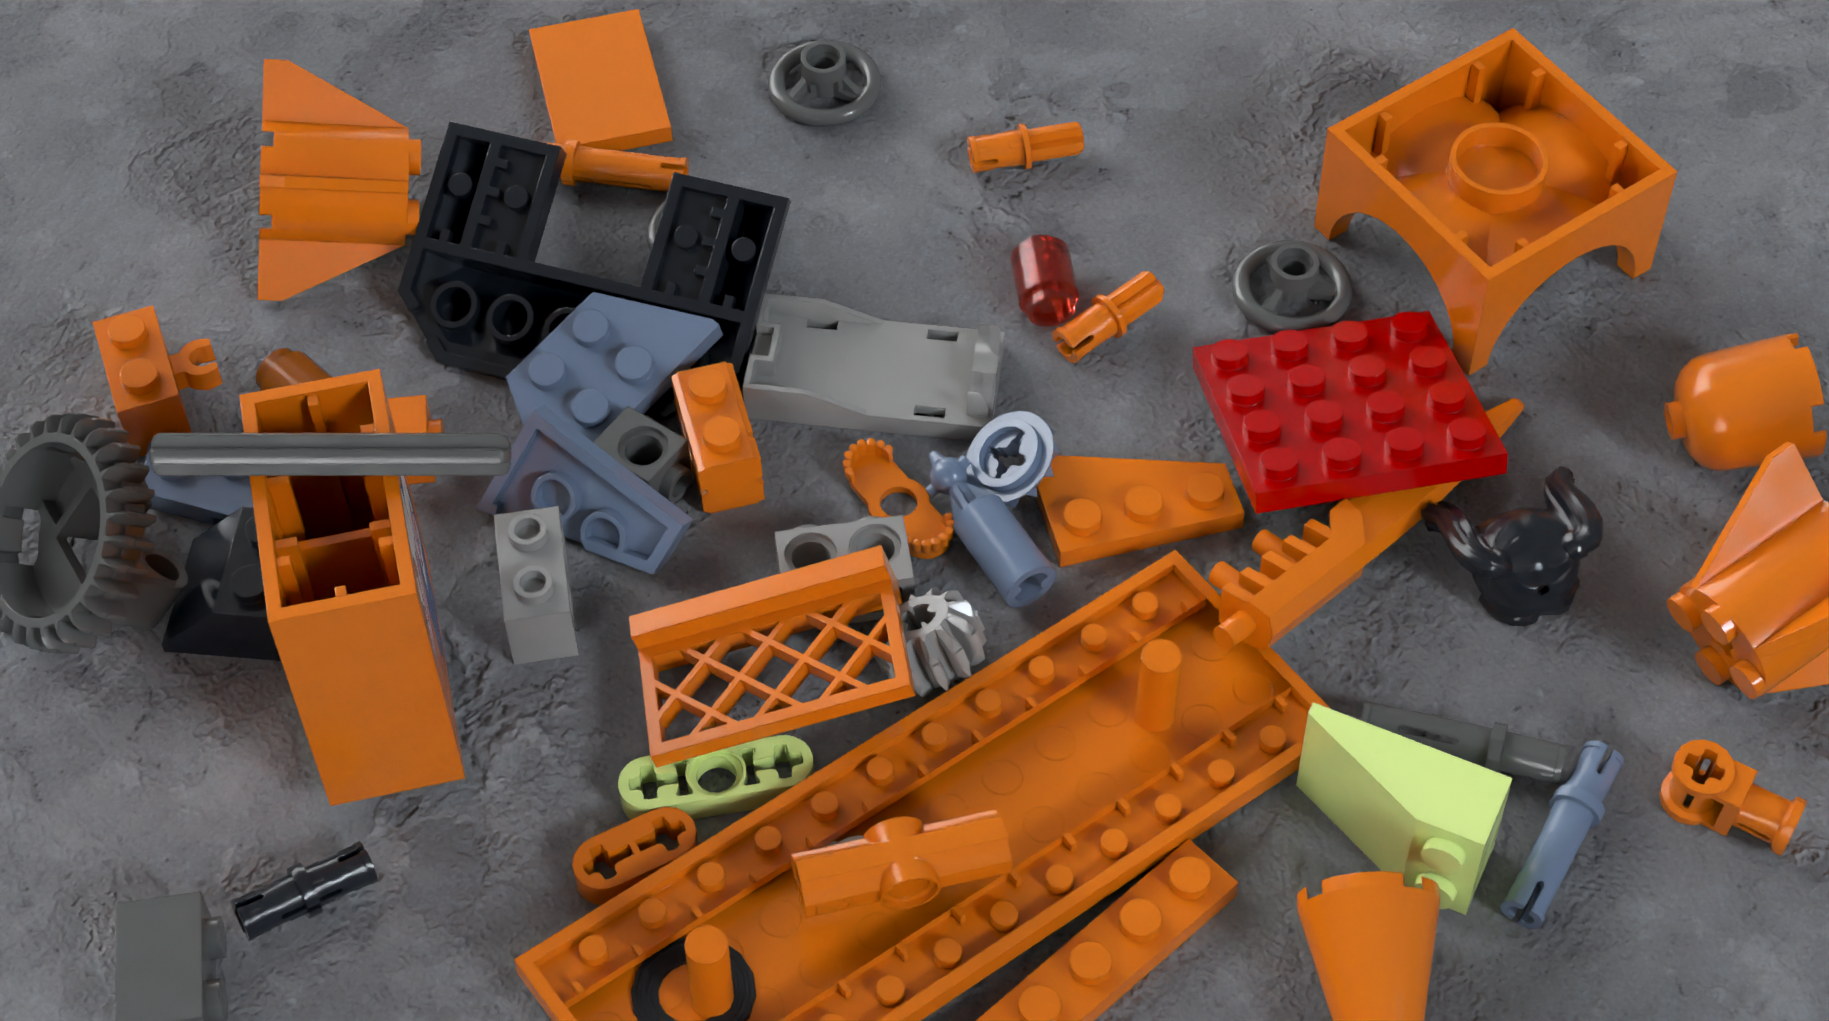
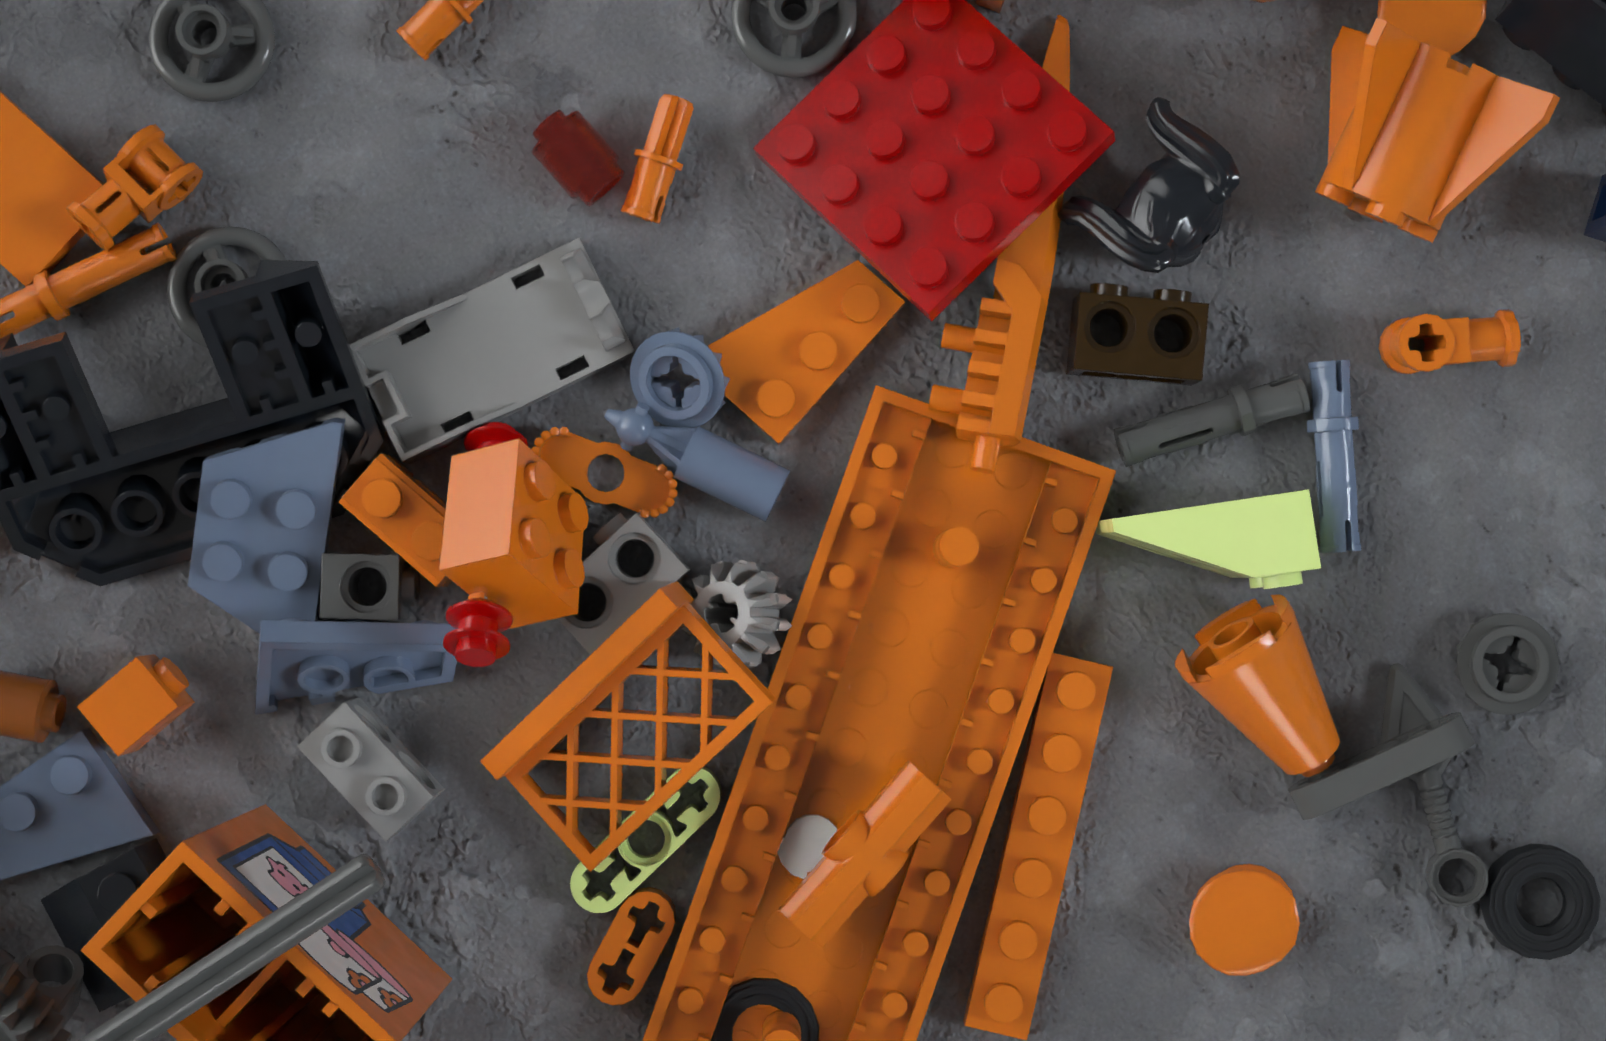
camera: 45 degrees left, 35 degrees up
(693, 128) = (139, 182): none -> orange connector
(782, 462) = (508, 543): none -> orange brick
(1426, 650) = (1137, 353): none -> dark brown brick

